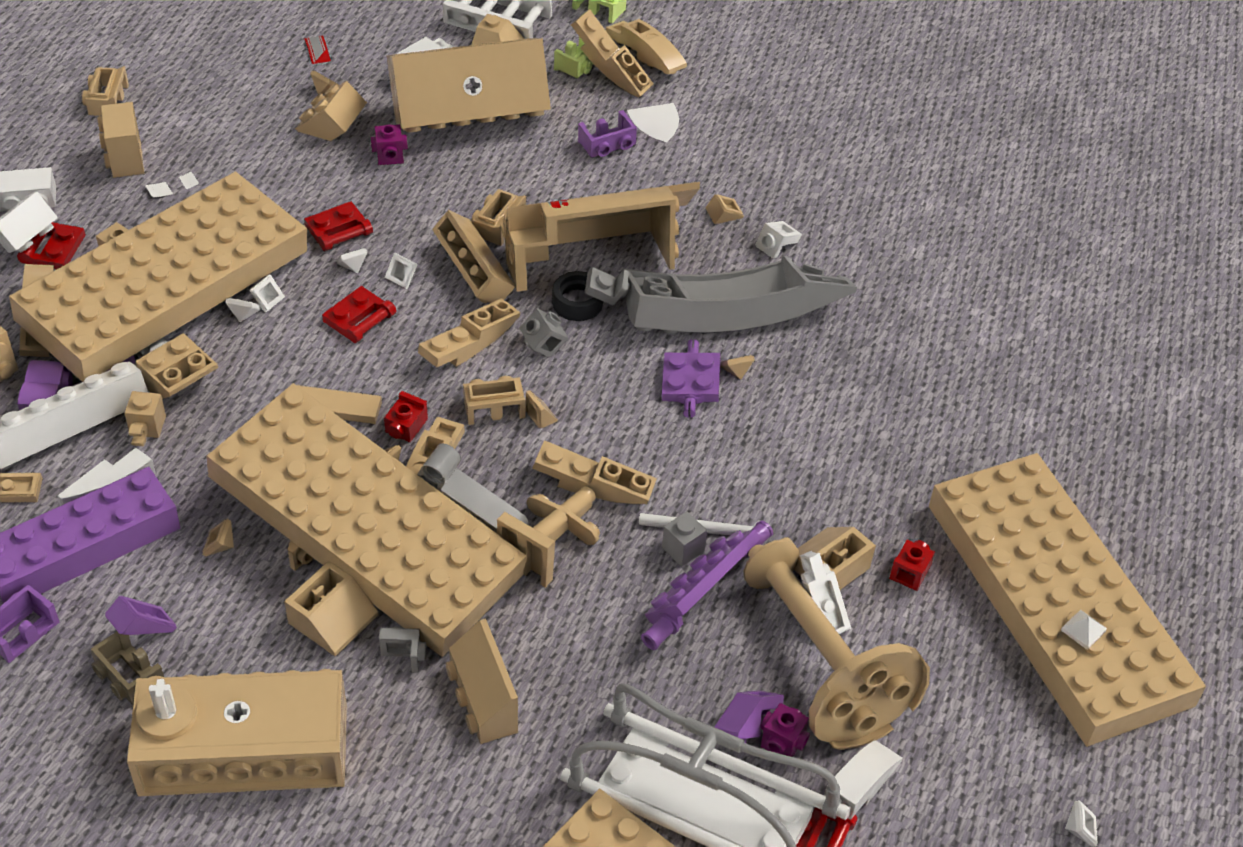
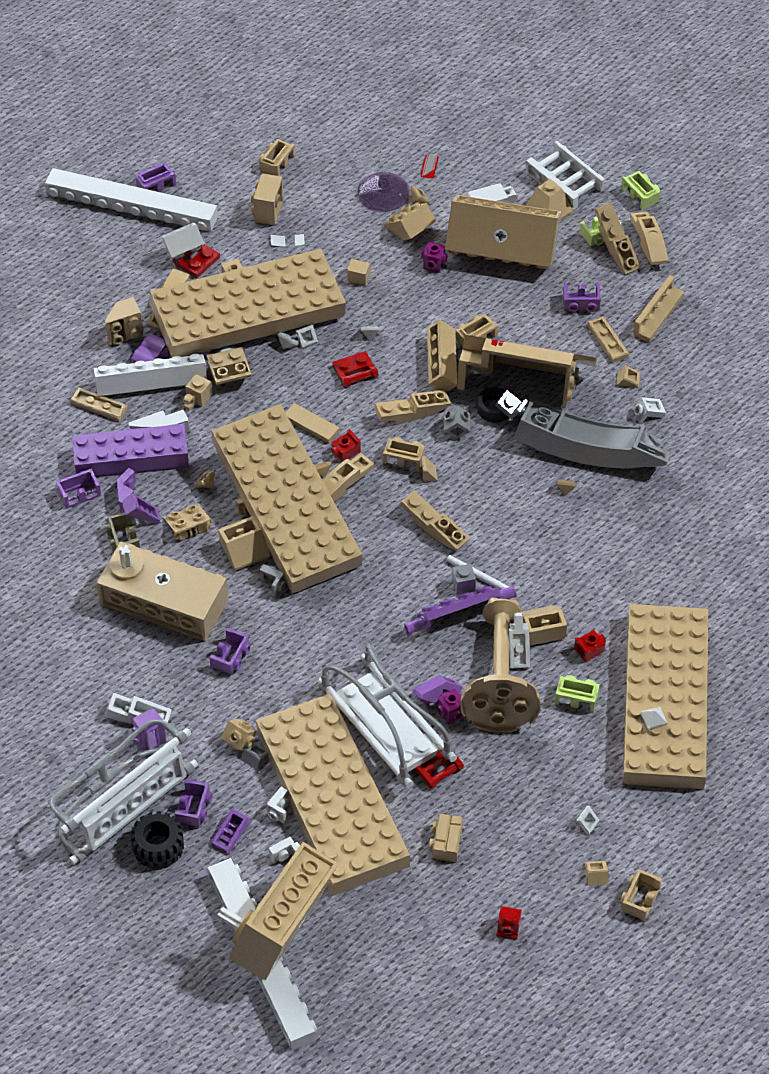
camera: 30 degrees right, 5 degrees up
(95, 596) = (125, 485): none -> medium lavender slope
(223, 609) = (186, 519): none -> tan hinge
(273, 92) = (383, 191): none -> clear purple dish
(296, 192) = (358, 272): none -> tan piece
(337, 225) = (371, 300): red plate -> none
(397, 761) = (232, 638): none -> medium lavender window
(400, 270) = (394, 349): white slope -> none
(442, 473) = (351, 509): light grey beam -> none
(483, 684) = (302, 616): tan slope -> none
(539, 541) = (374, 549): tan piece -> none
(656, 121) = (625, 296): white sticker -> none
(665, 171) = (608, 339): none -> tan tile
(691, 377) = (533, 483): medium lavender plate -> none
(711, 124) = (657, 310): none -> tan fence
(865, 775) = (479, 746): white slope -> none
(929, 635) = (577, 691): none -> yellowish green window

